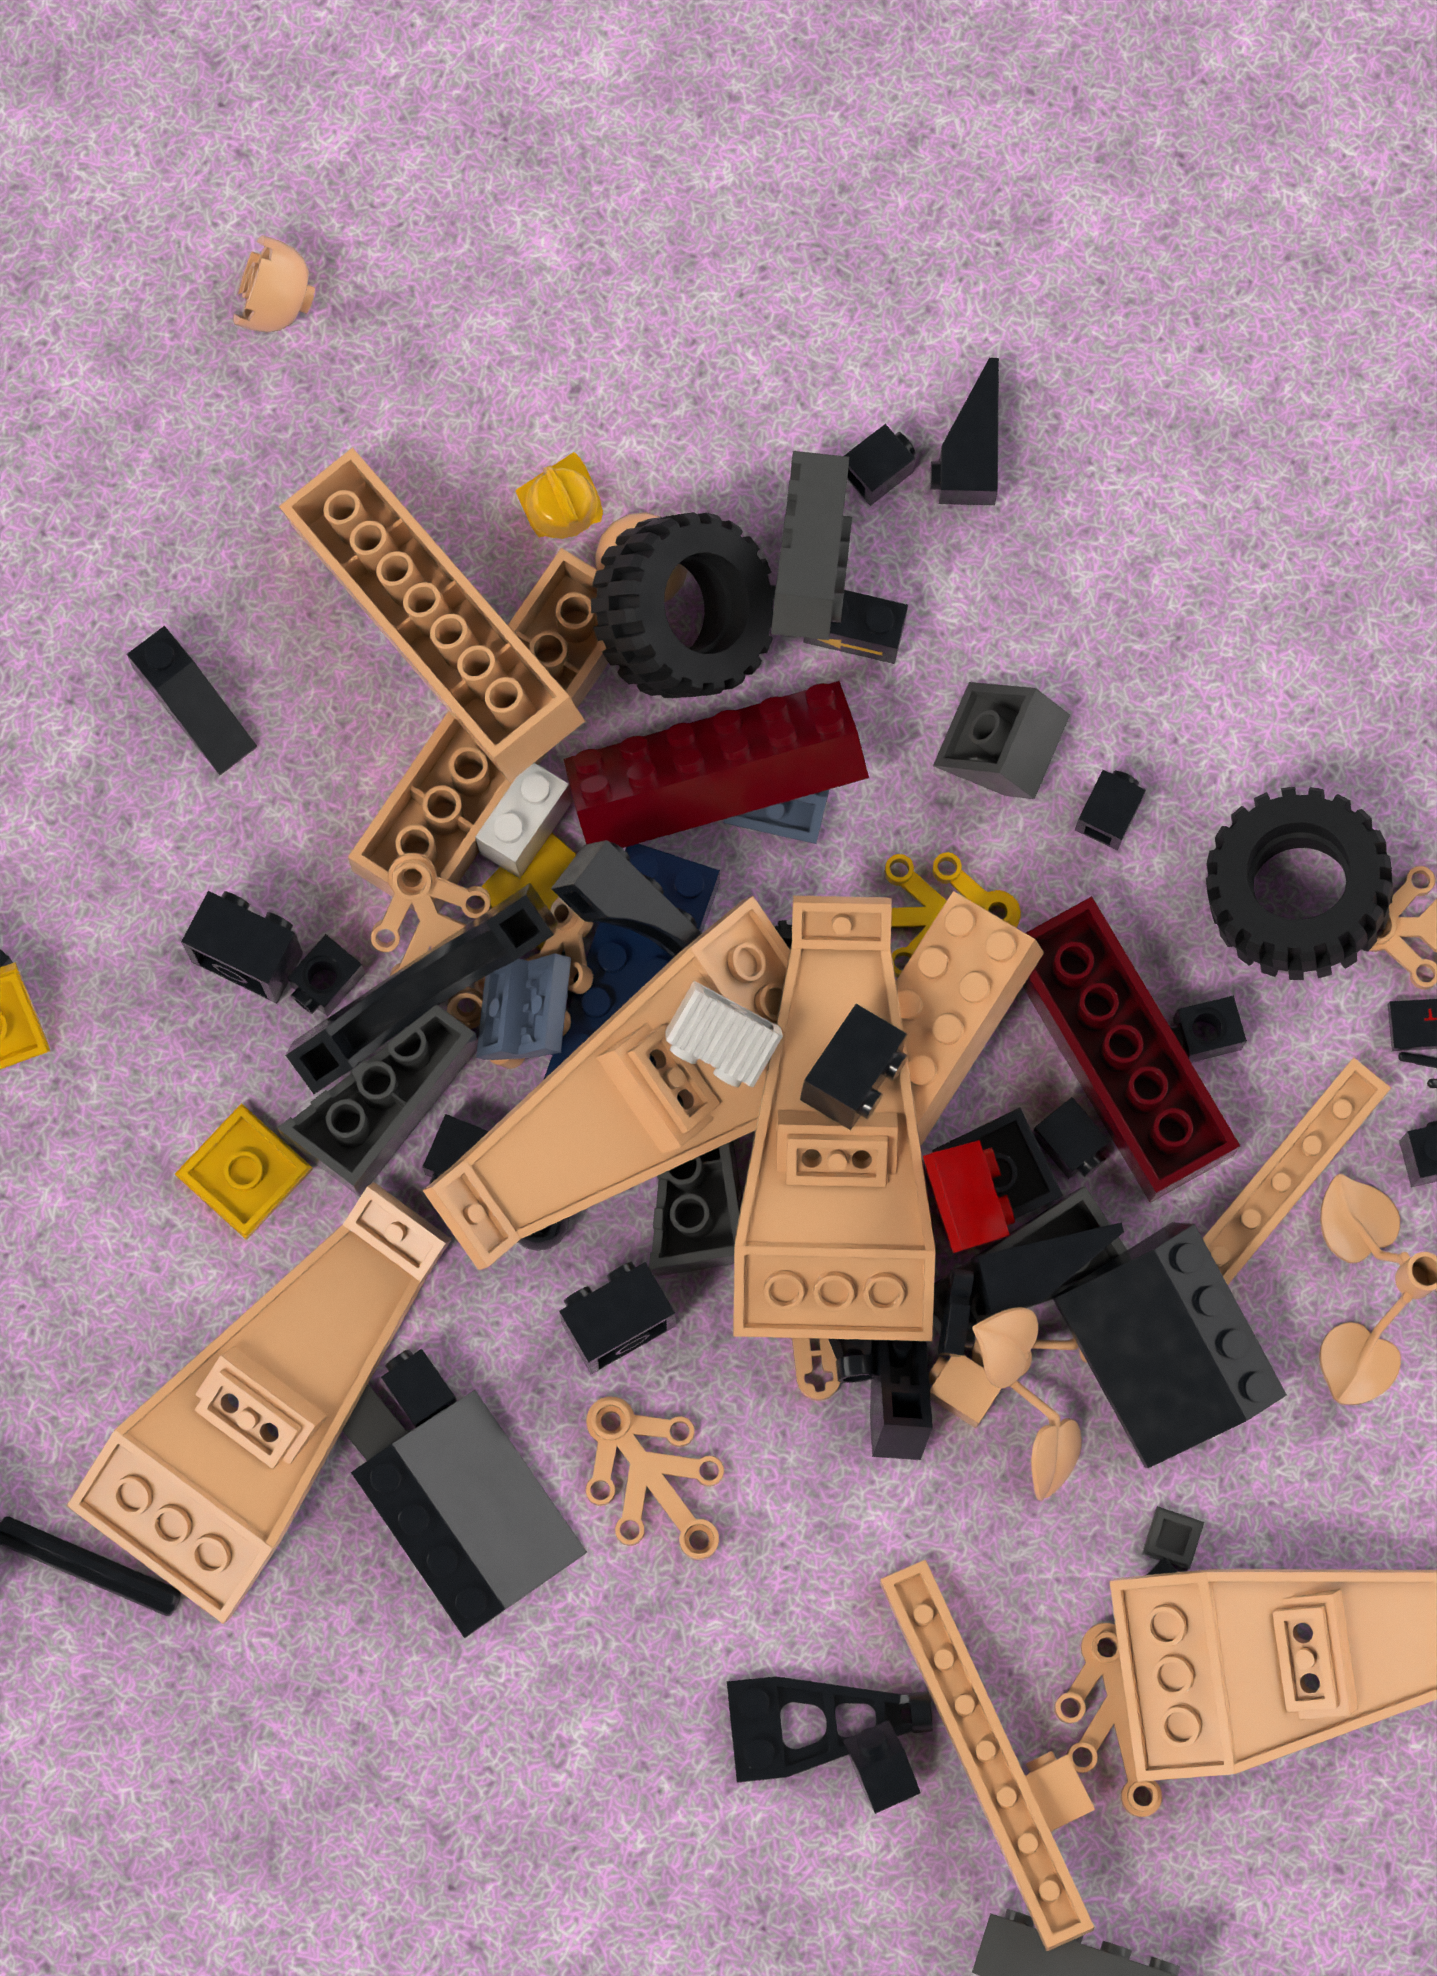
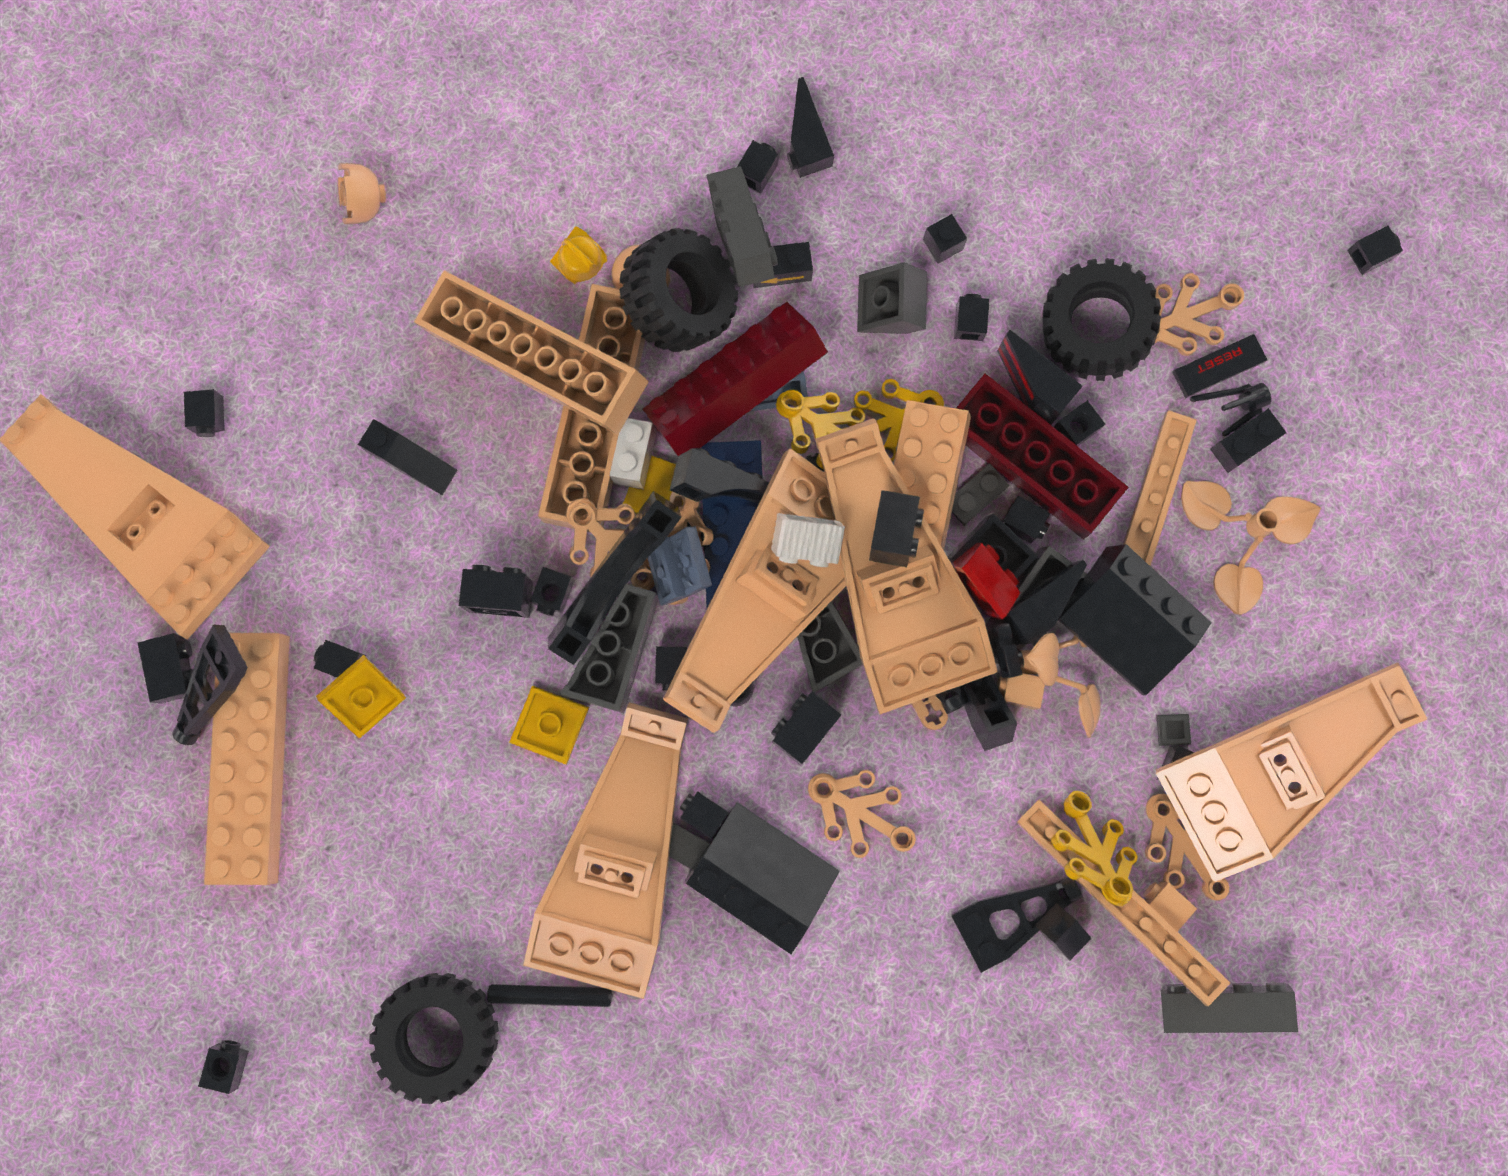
camera: 20 degrees left, 5 degrees up
(818, 879) = (821, 423): none -> yellow plant
(976, 1666) = (1114, 886): none -> yellow plant
(1016, 1074) = (978, 494): none -> dark grey plate
(1117, 676) = (944, 238): none -> black brick
(1173, 949) = (1037, 379): none -> black slope

